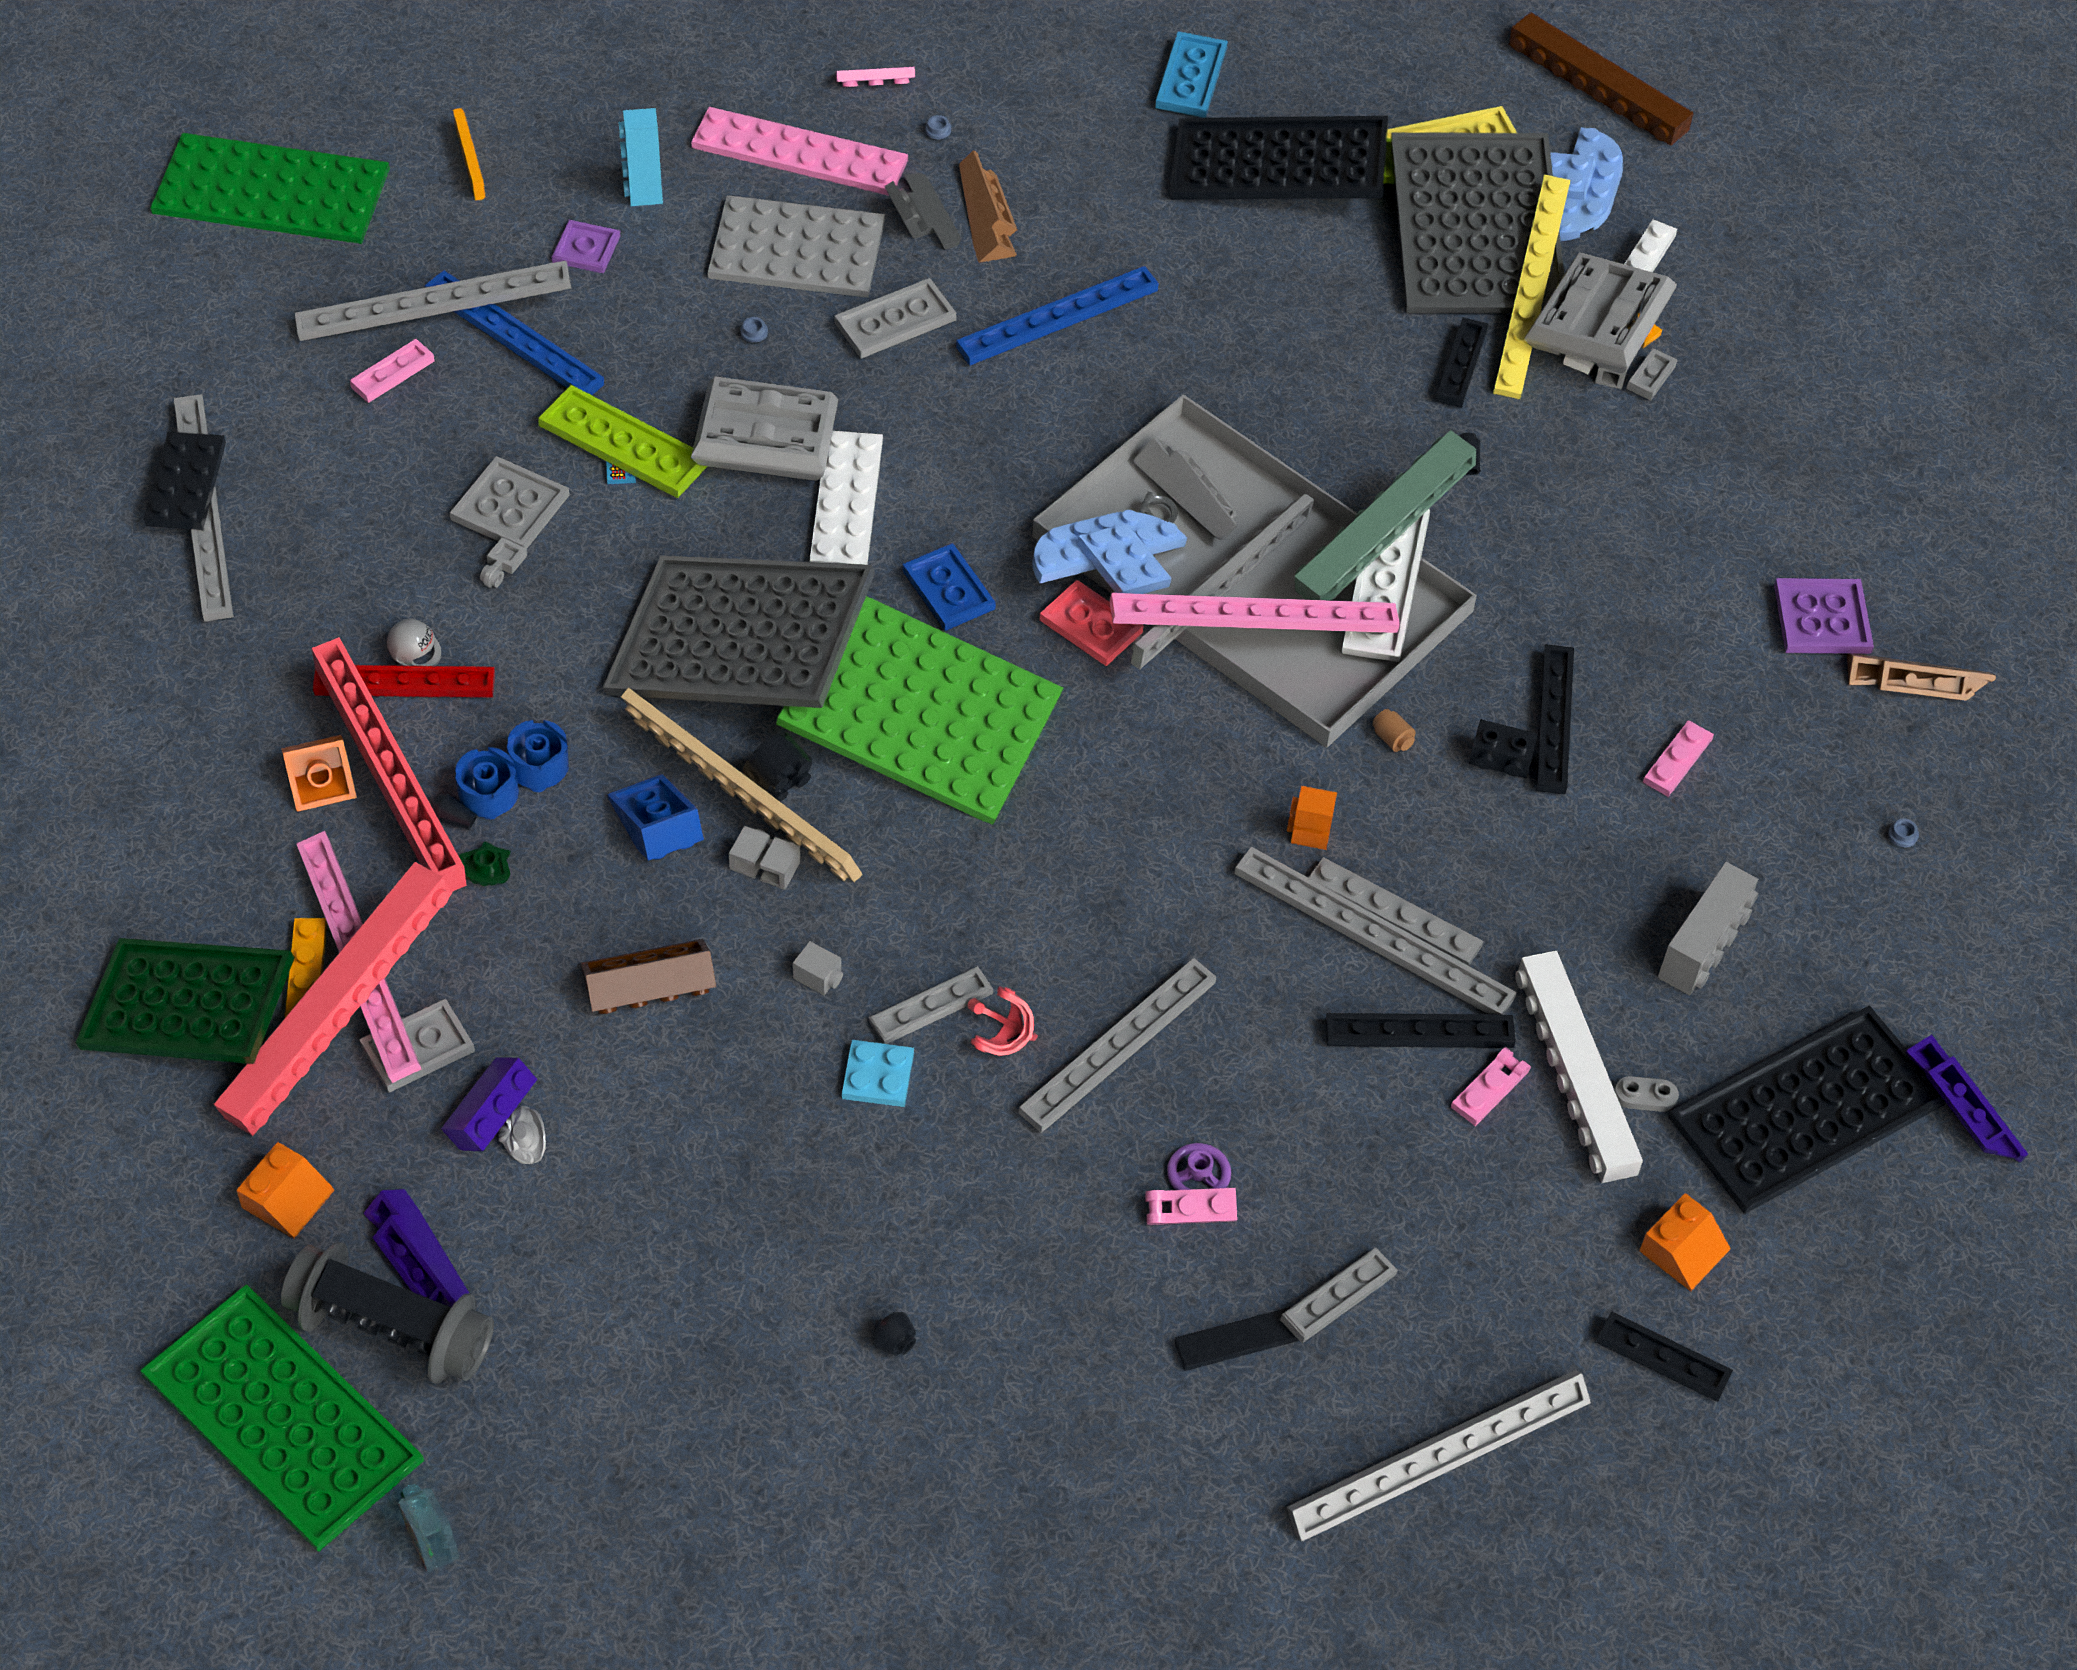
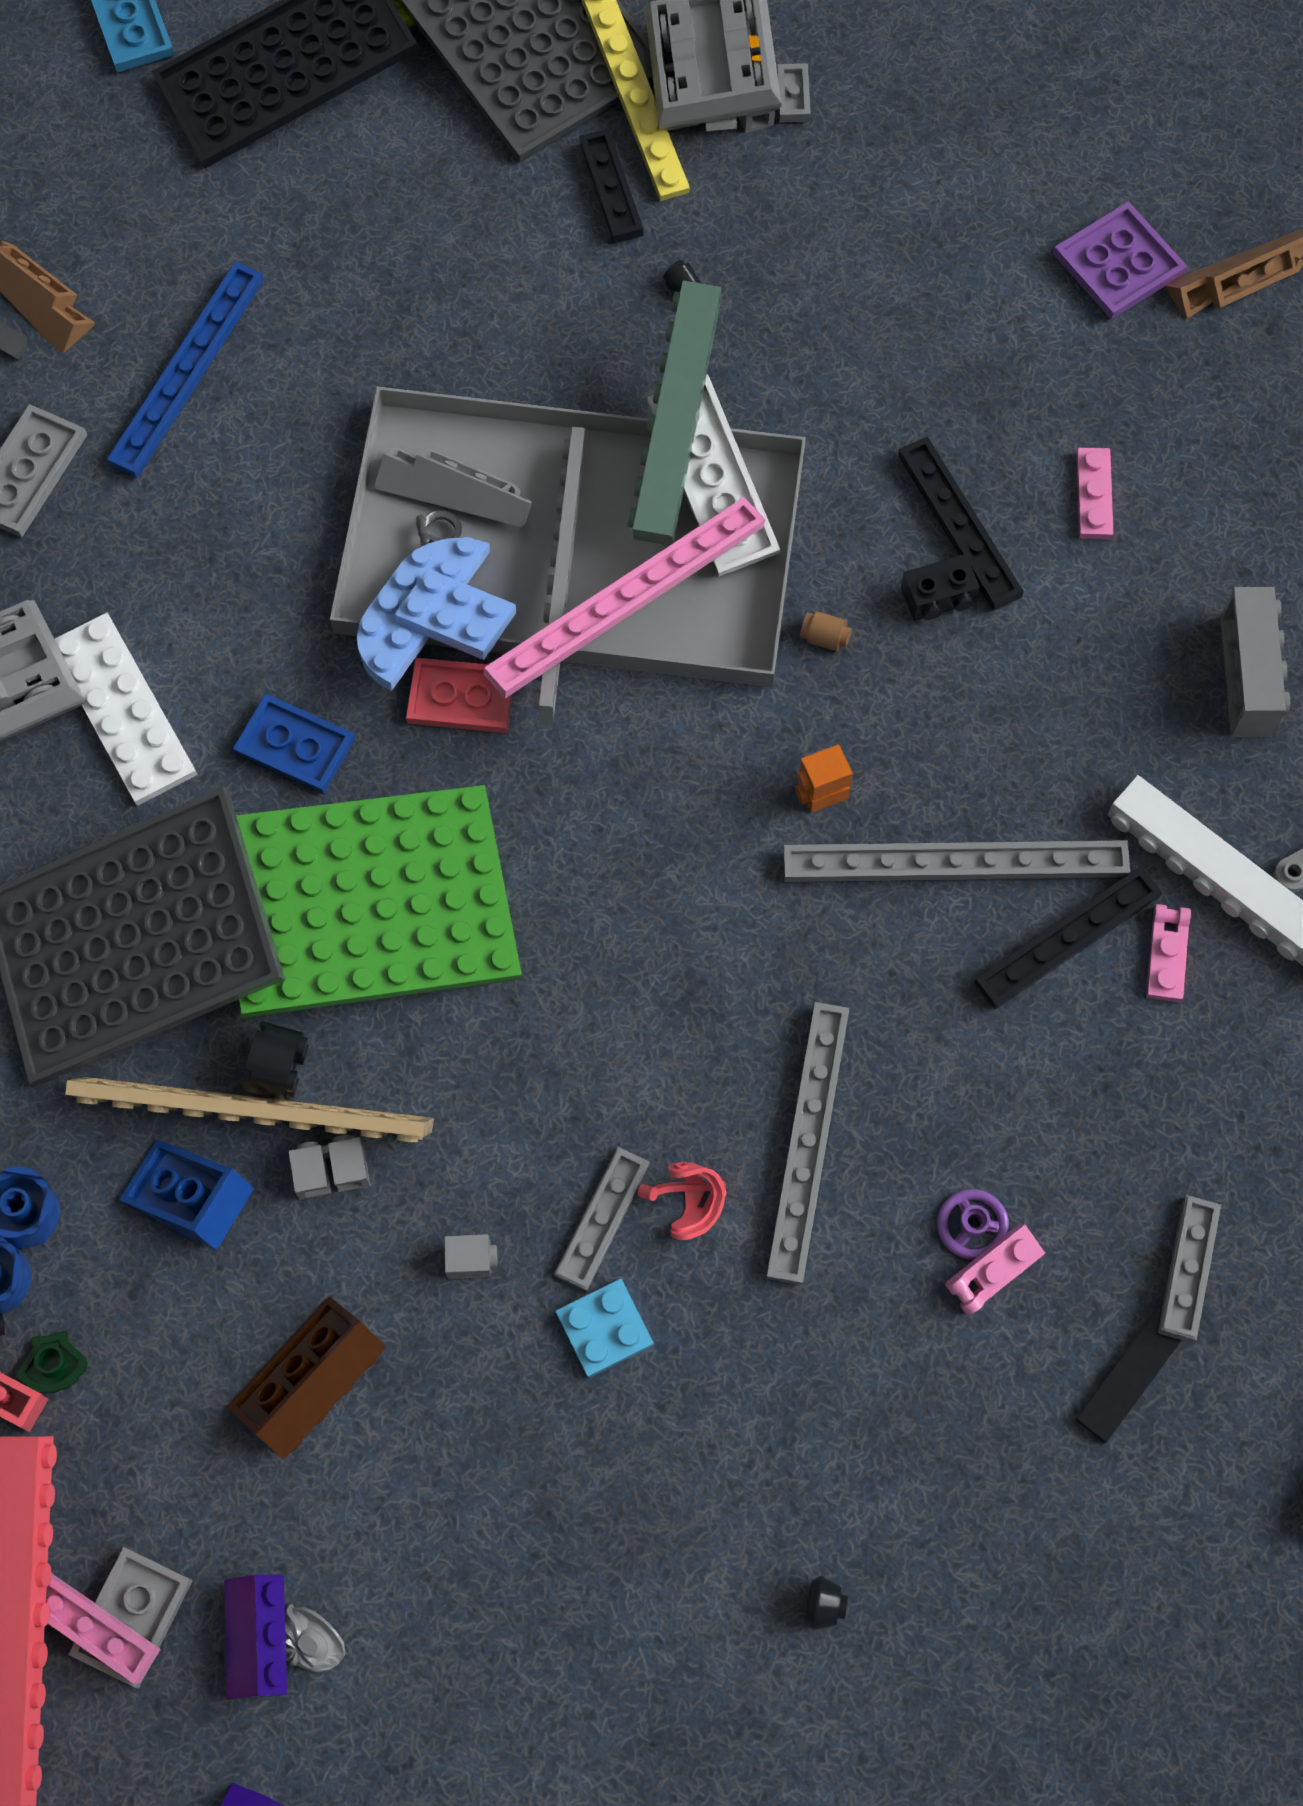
camera: 30 degrees left, 15 degrees up
(1398, 911) = (959, 824): light grey plate -> none

